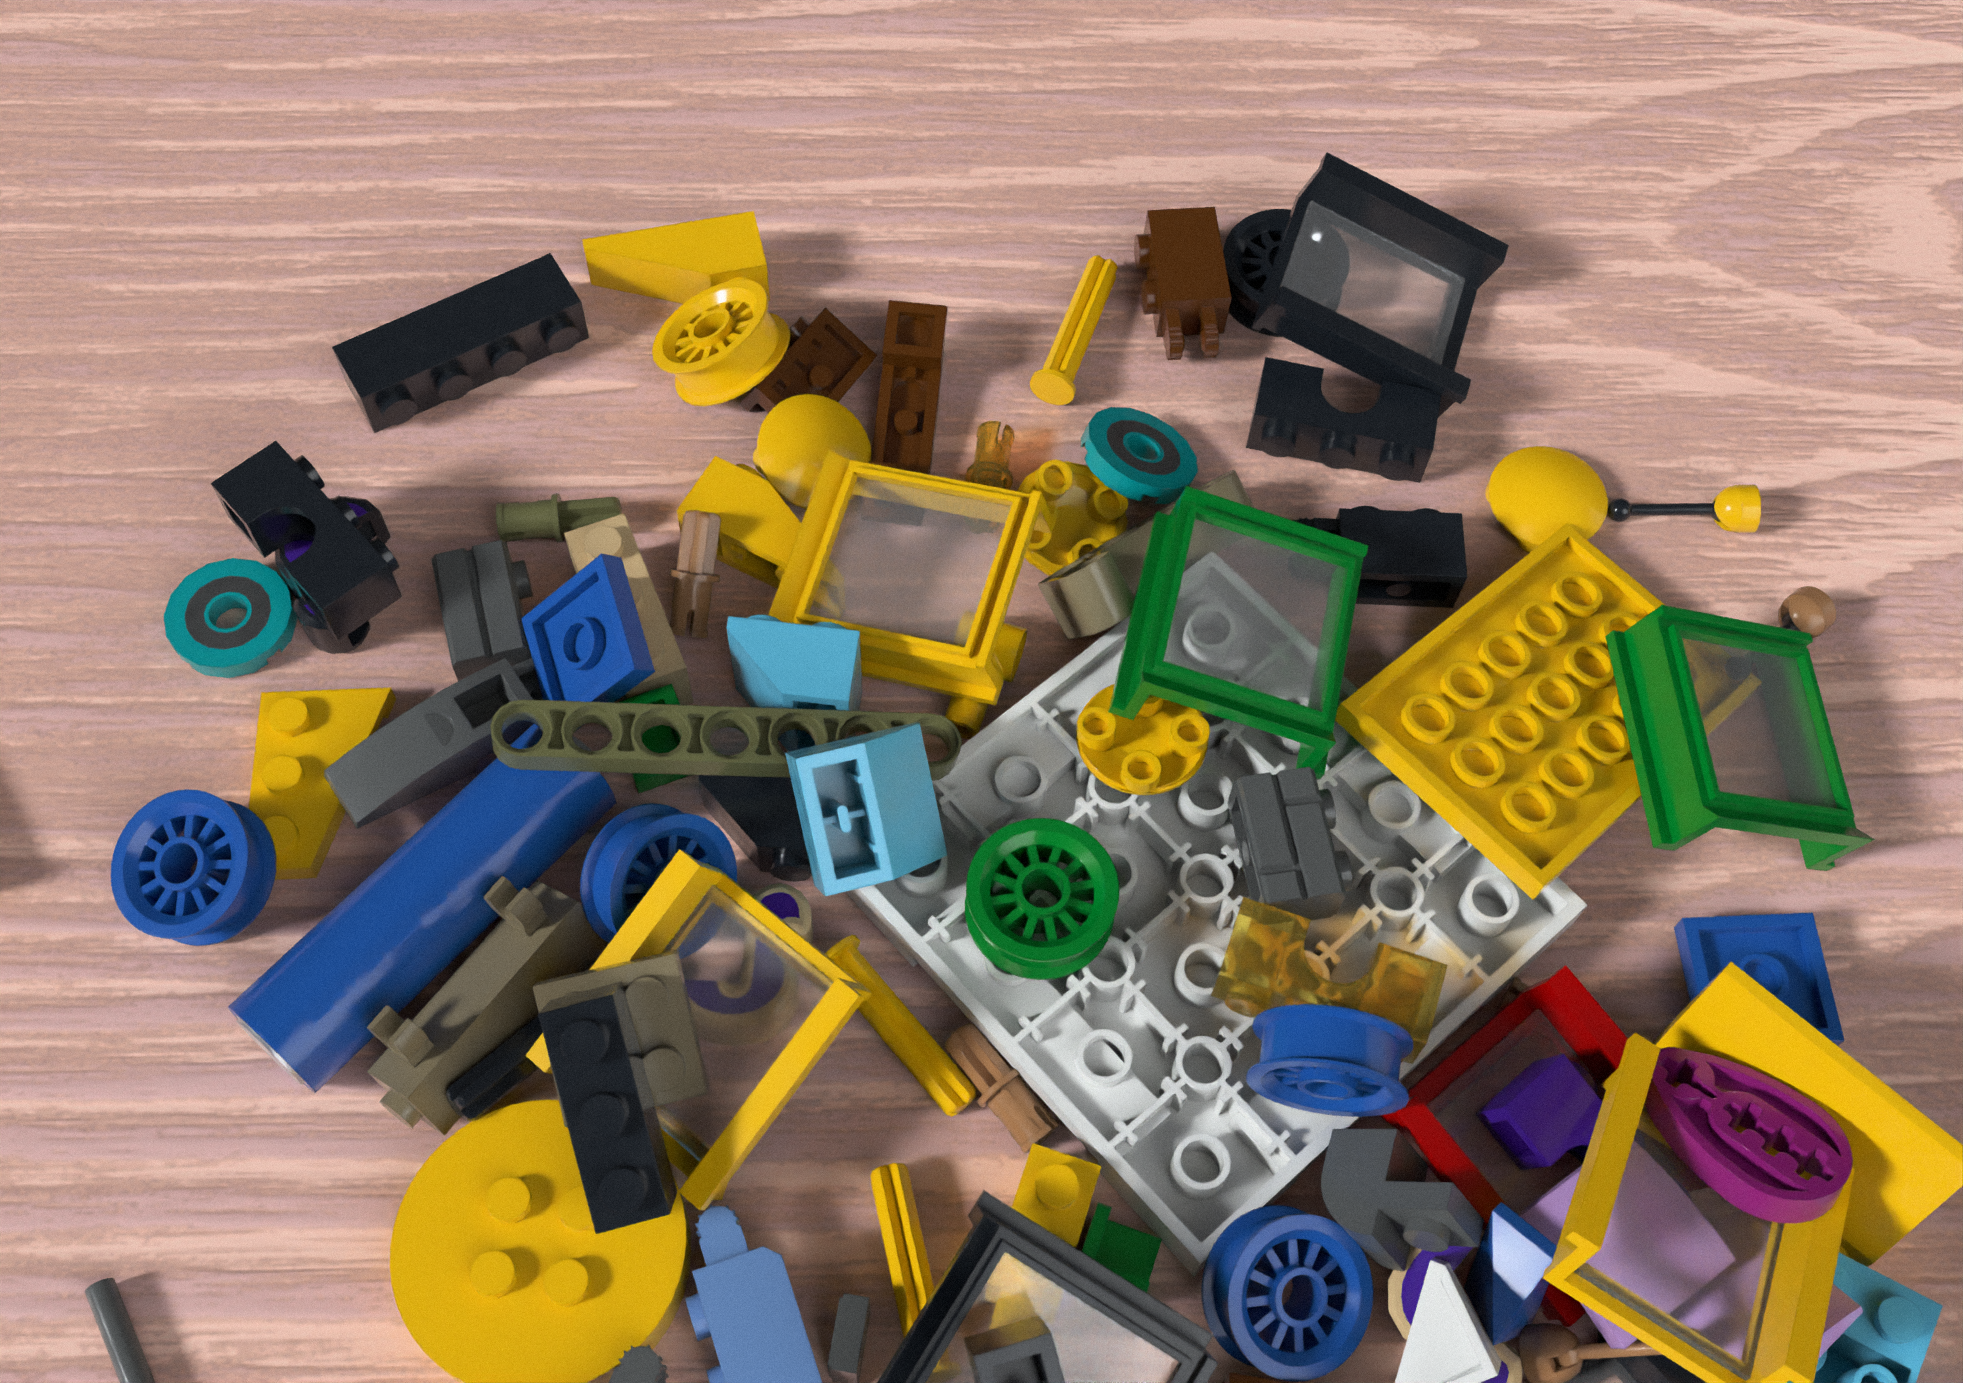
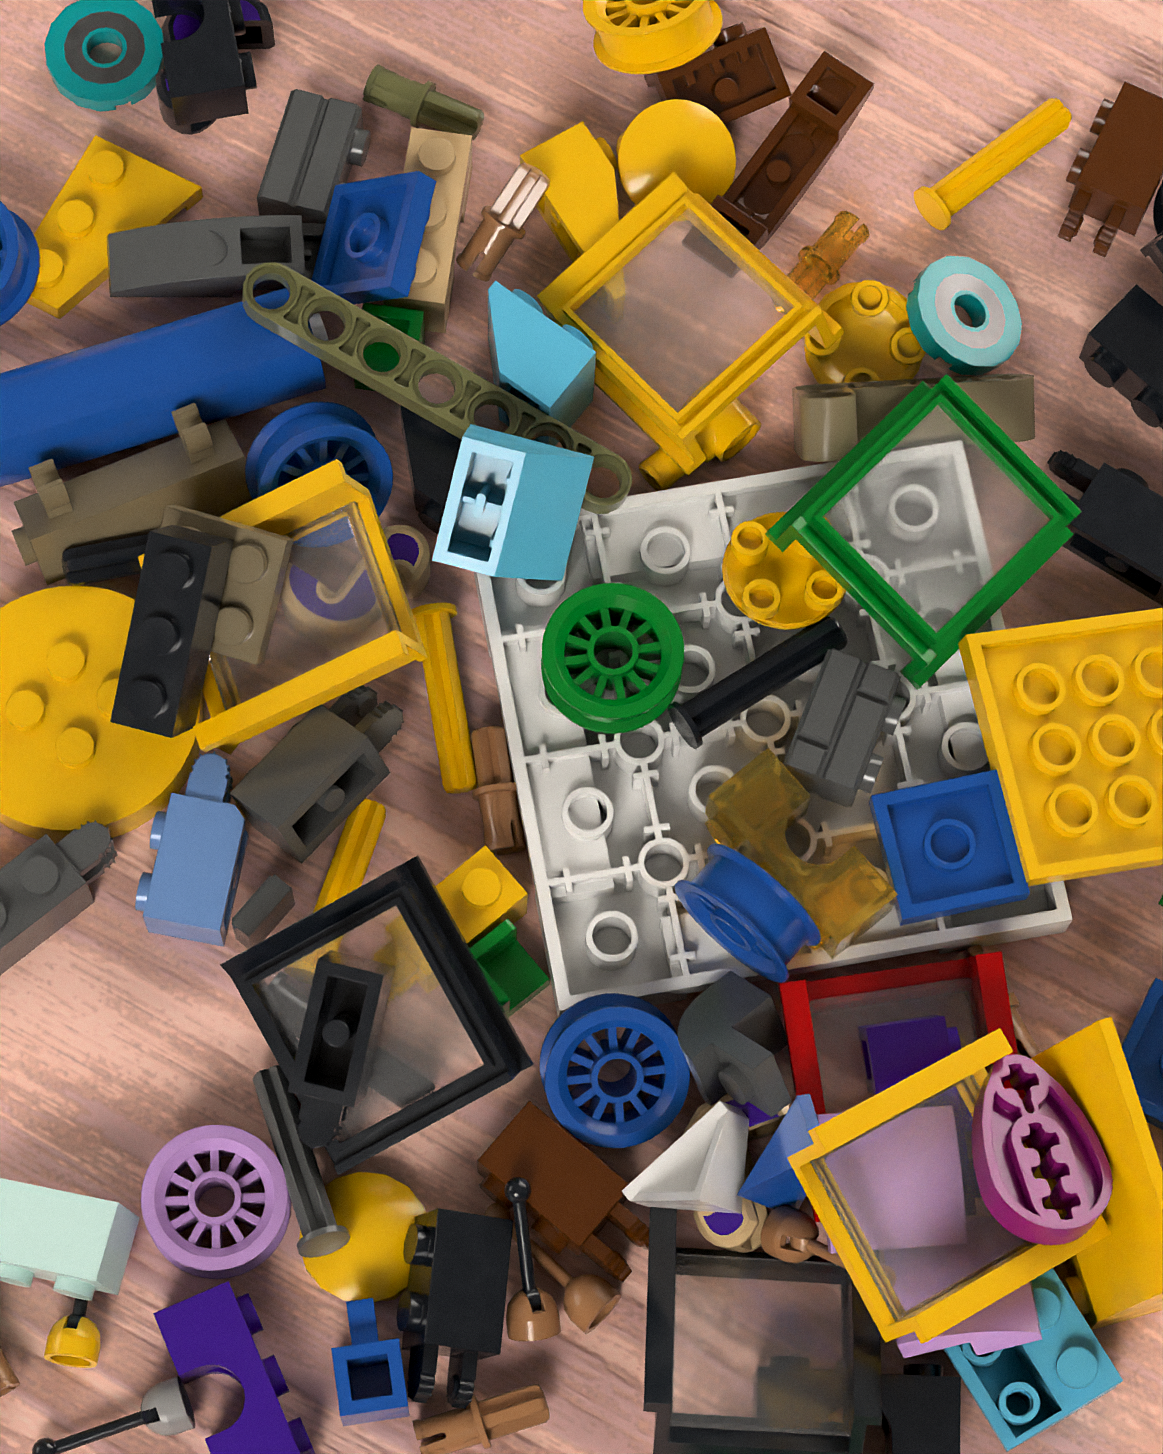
camera: 30 degrees right, 10 degrees up
(823, 1168) = (319, 771): none -> dark grey hinge
(1180, 850) = (756, 680): none -> black axle
(1449, 899) = (948, 847): none -> blue plate

